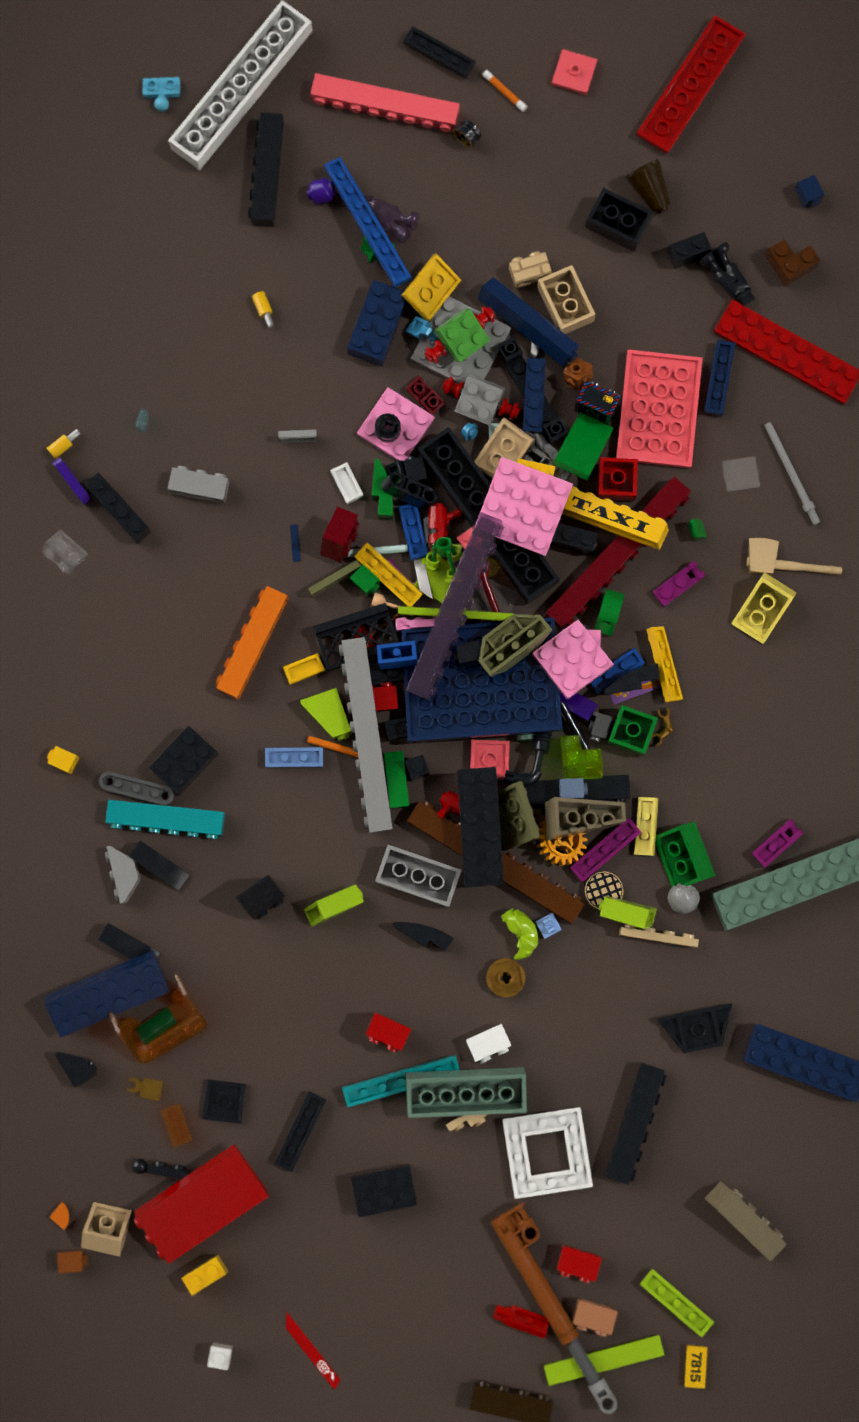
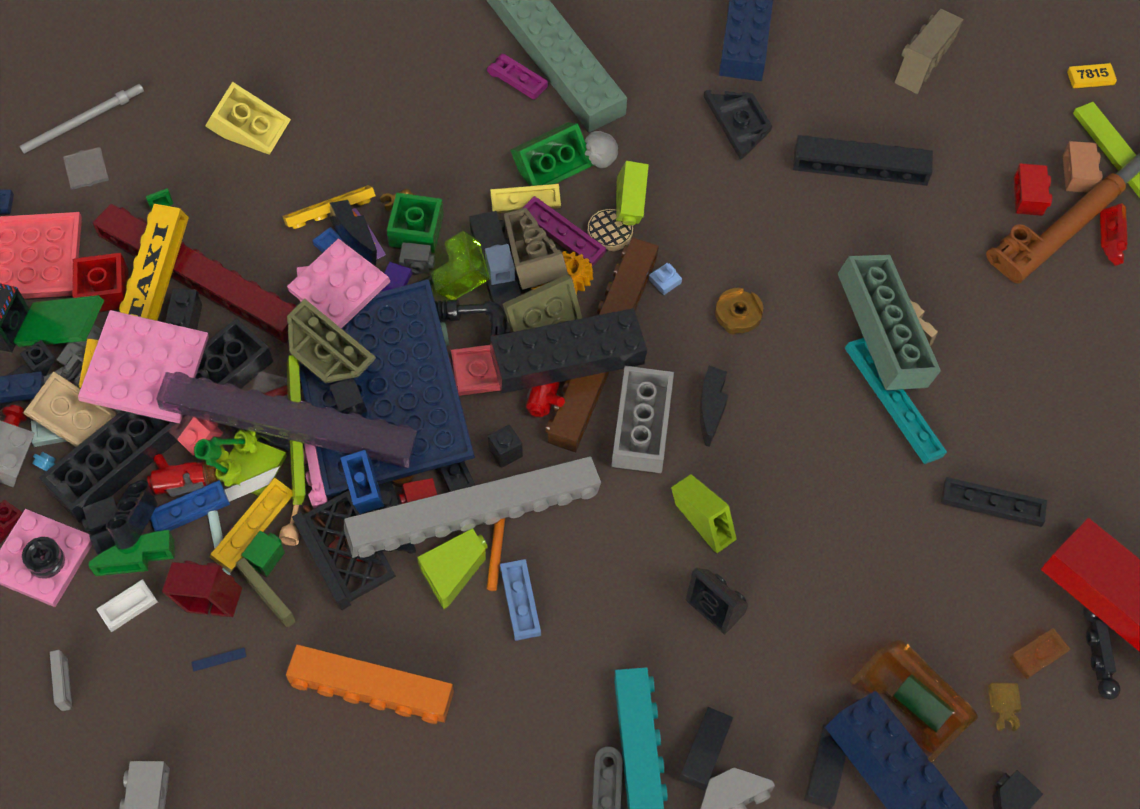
camera: 105 degrees left, 20 degrees down
(184, 760) = (553, 742): black brick -> none
(224, 1101) = (988, 602): black tile -> none
(304, 669) = (396, 612): yellow tile -> none
(384, 1190) = (1029, 393): black brick -> none
(388, 1032) = (844, 417): red brick -> none
(396, 780) = (527, 461): green slope -> none
(488, 1043) = (820, 314): white brick -> none
(524, 930) = (677, 297): lime animal -> none
(532, 1185) = (964, 250): white plate -> none
(609, 612) = (269, 265): green brick -> none
(667, 936) = (646, 141): tan plate -> none
(676, 1302) = (1035, 98): lime plate -> none
(678, 584) = (228, 209): magenta plate -> none
(763, 559) = (188, 131): tan piece -> none

